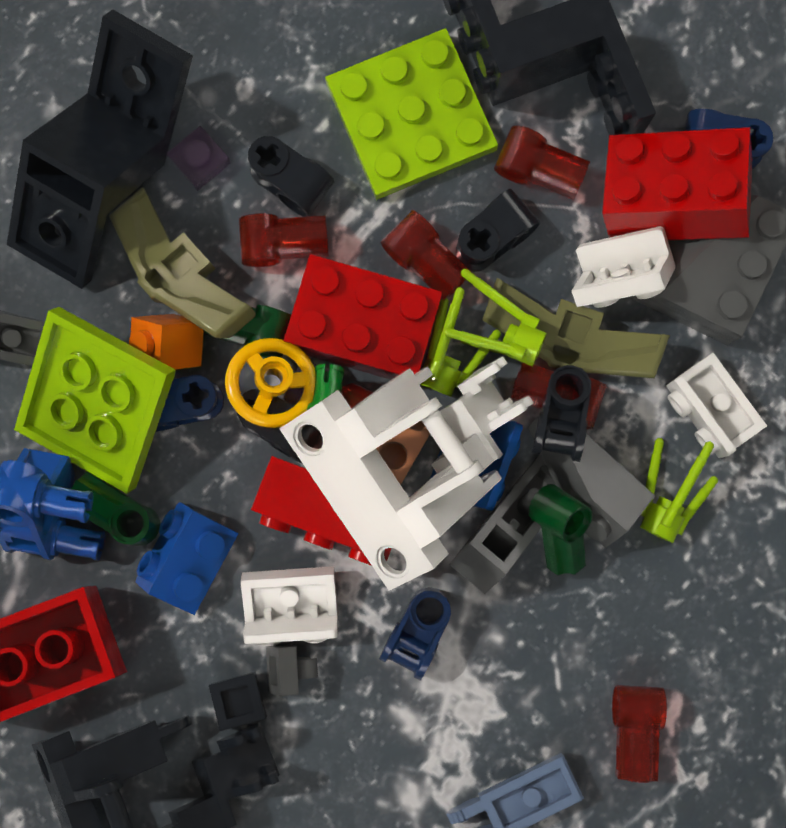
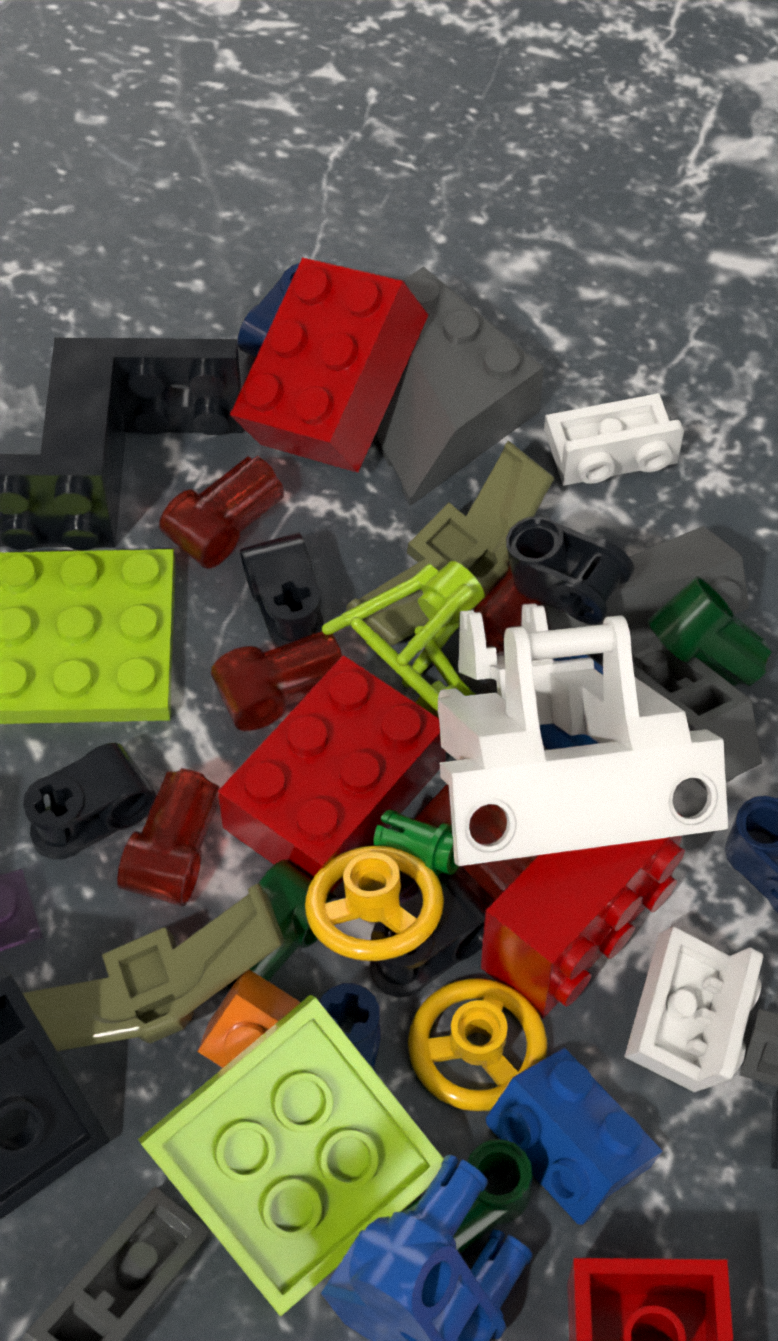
camera: 65 degrees left, 25 degrees down
(207, 449) = (473, 1017): none -> yellow piece
(623, 267) = (402, 458): white bracket -> none
(668, 517) = (728, 524): lime plant -> none

